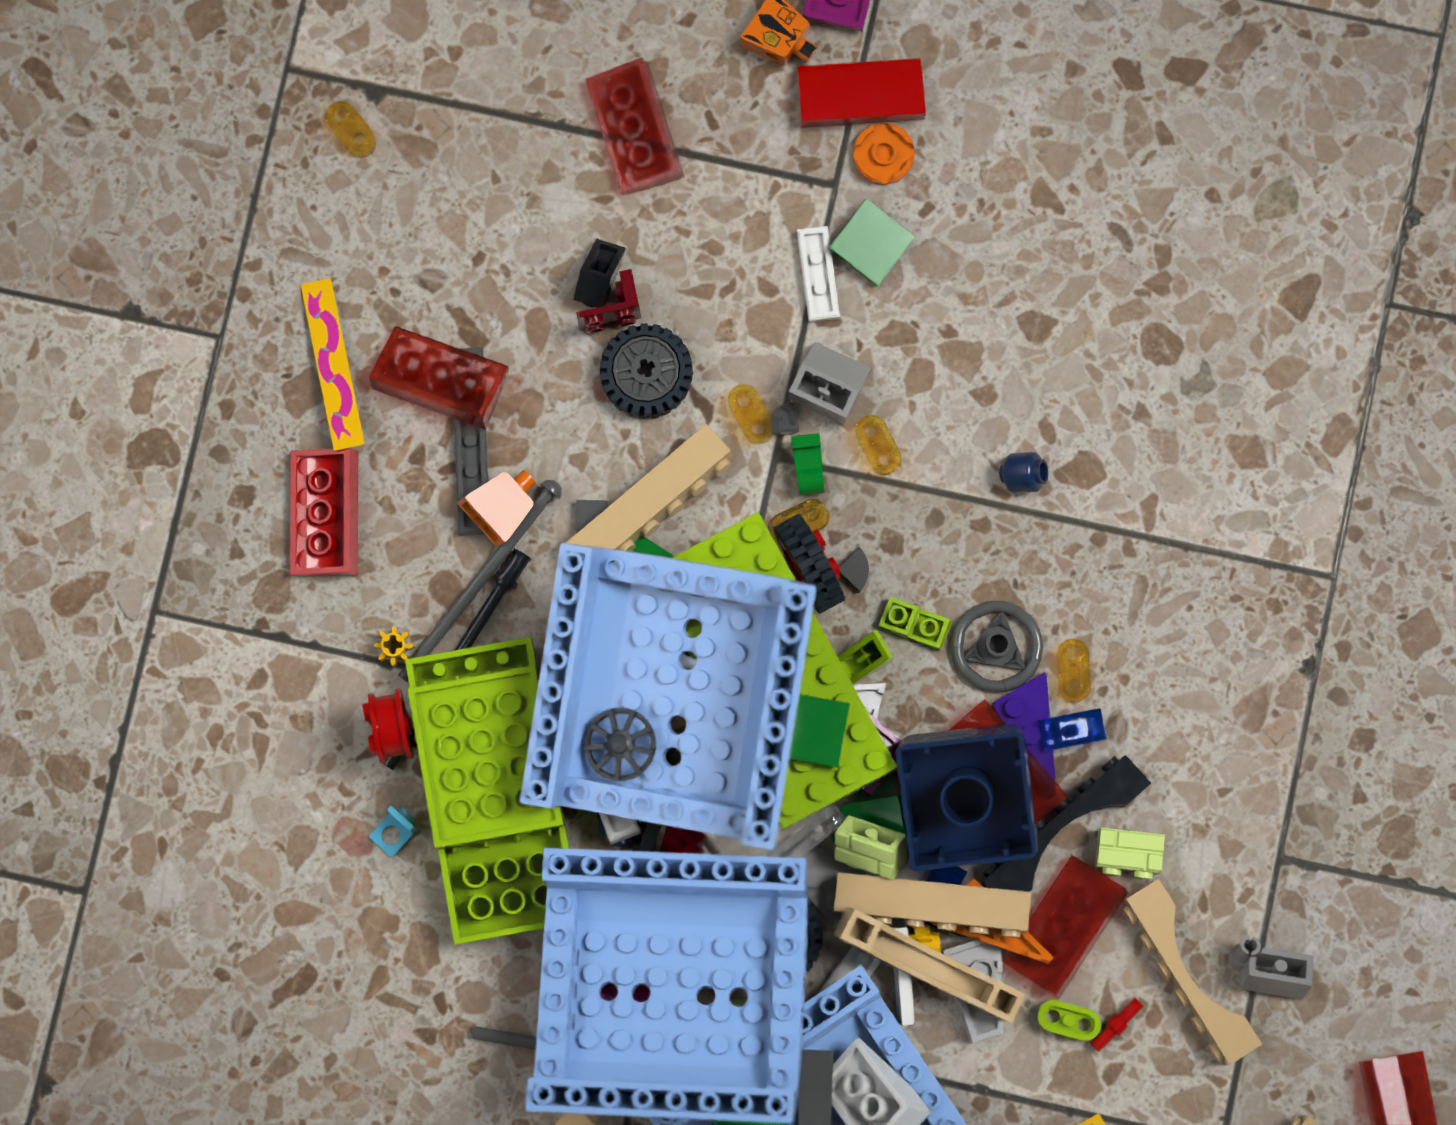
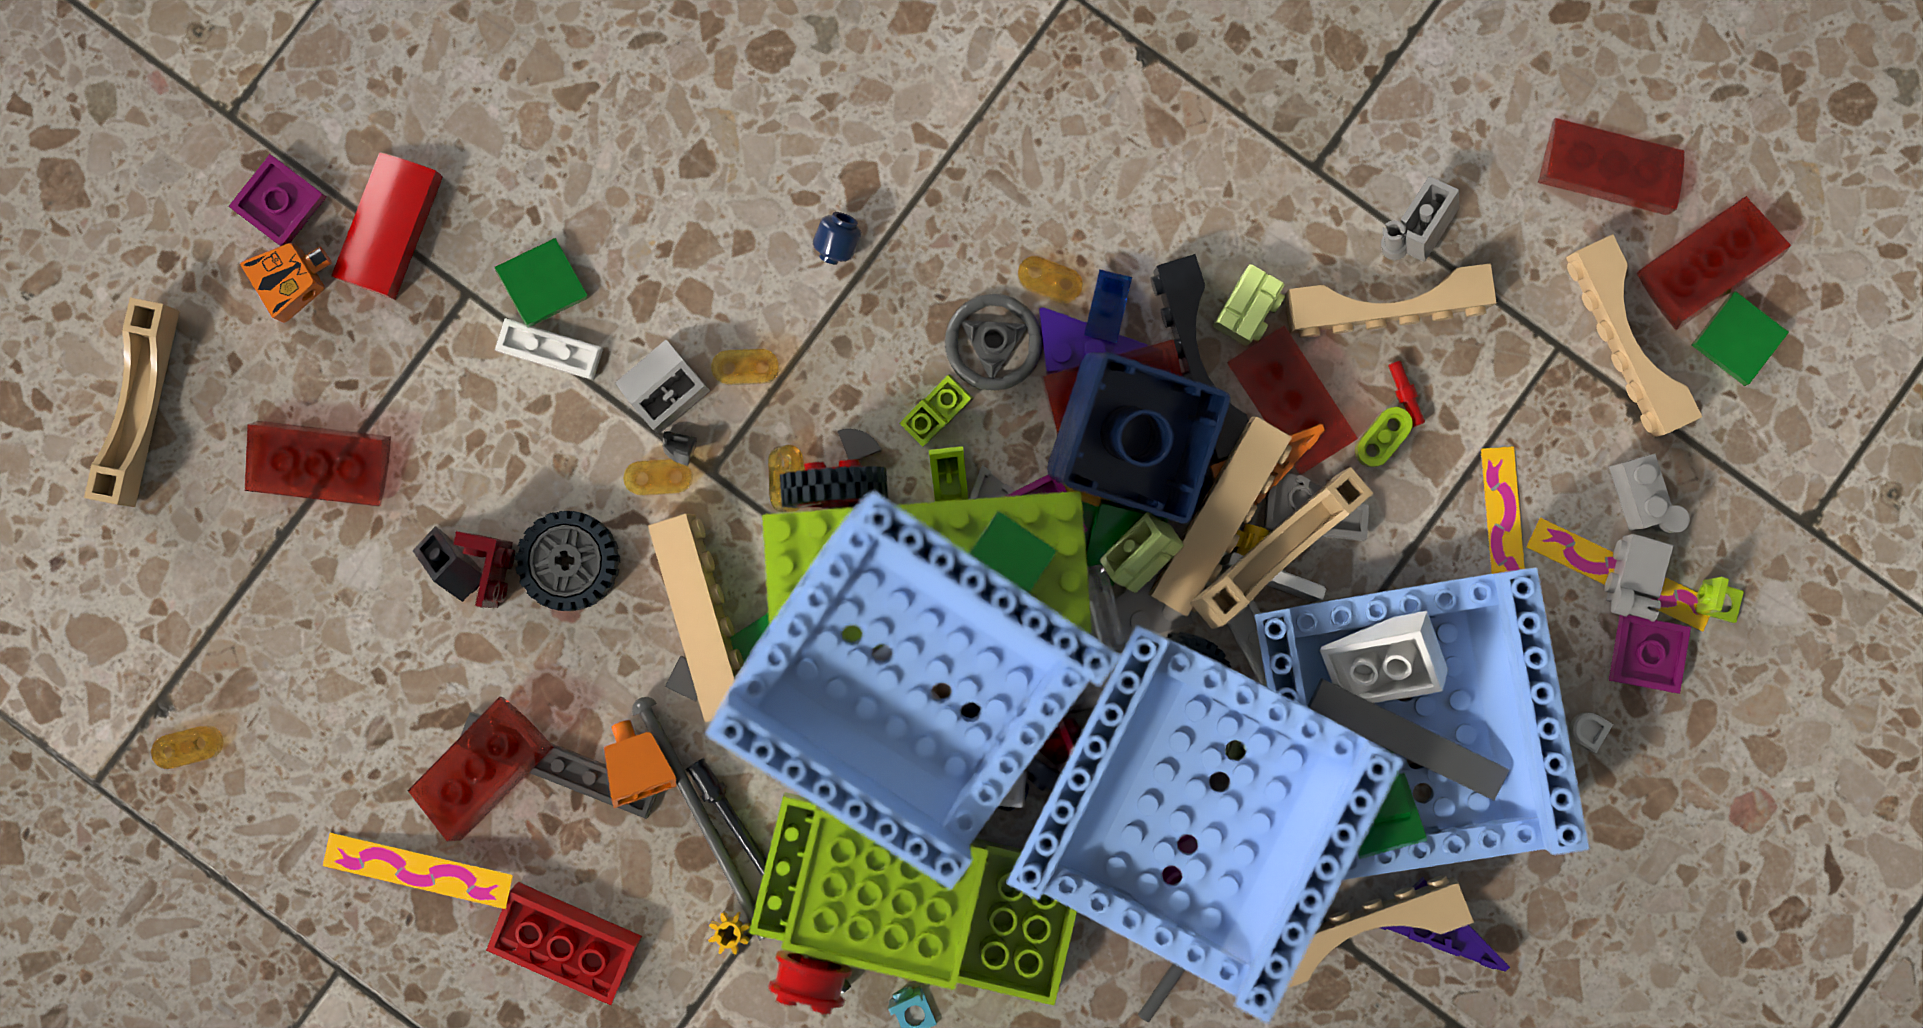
camera: 70 degrees left, 5 degrees up
(619, 744) = (935, 760): black wheel -> none
(808, 463) = (732, 443): green leg -> none
(883, 153) = (458, 231): orange tile -> none

